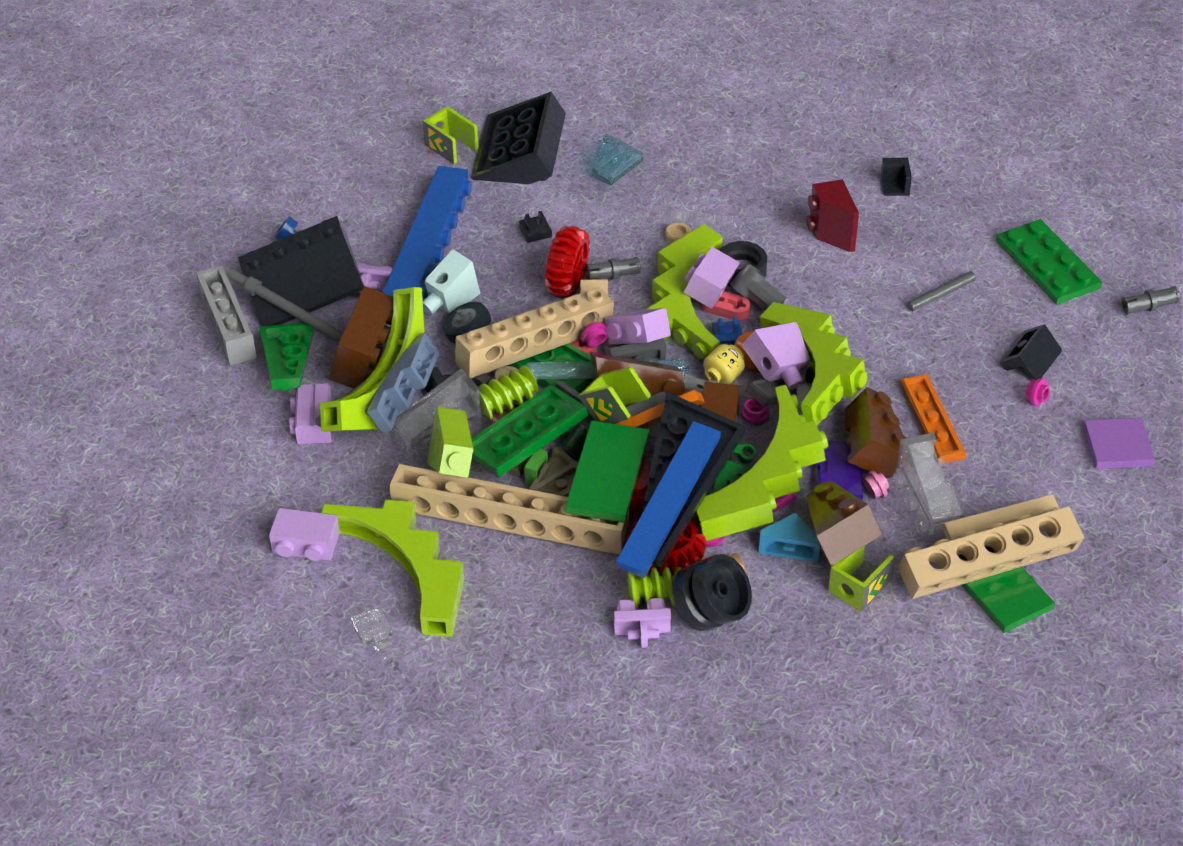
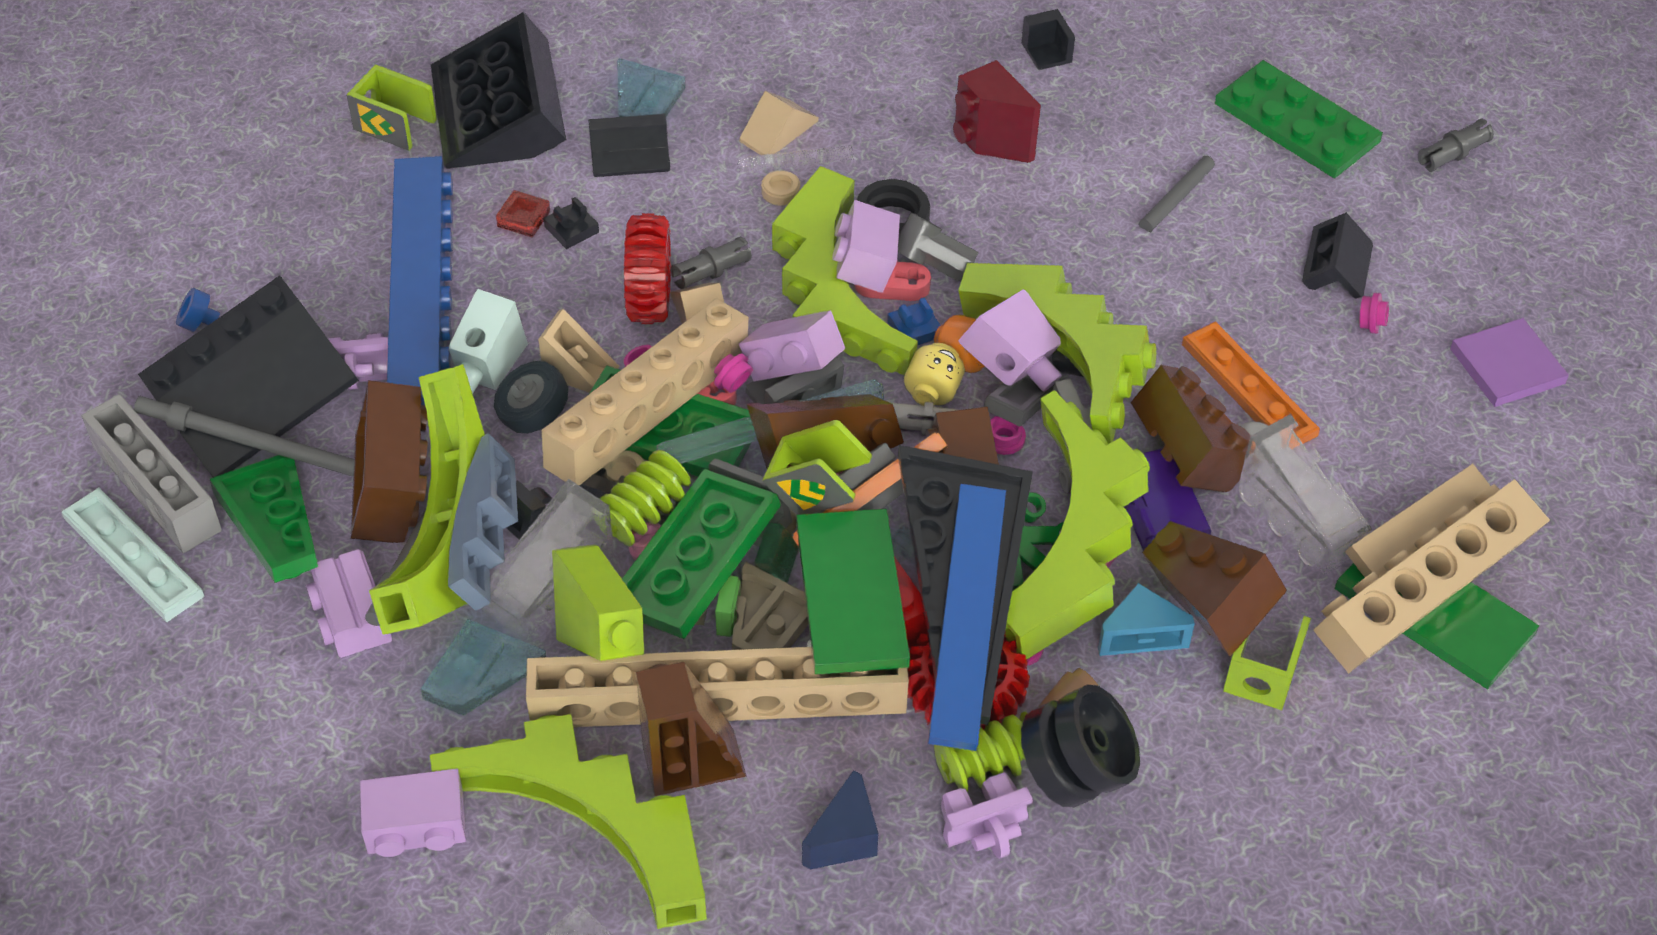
camera: 20 degrees left, 5 degrees up
(201, 359) = (133, 554): none -> light aqua tile
(371, 467) = (477, 668): none -> clear light blue wing
(475, 525) = (684, 731): none -> reddish brown wedge
(500, 299) = (573, 352): none -> tan slope
(507, 215) = (522, 213): none -> clear red plate
(551, 606) = (844, 829): none -> dark blue slope
(591, 187) = (629, 145): none -> black panel
(691, 193) = (775, 124): none -> tan slope
(876, 484) = (1222, 507): bright pink plate -> none

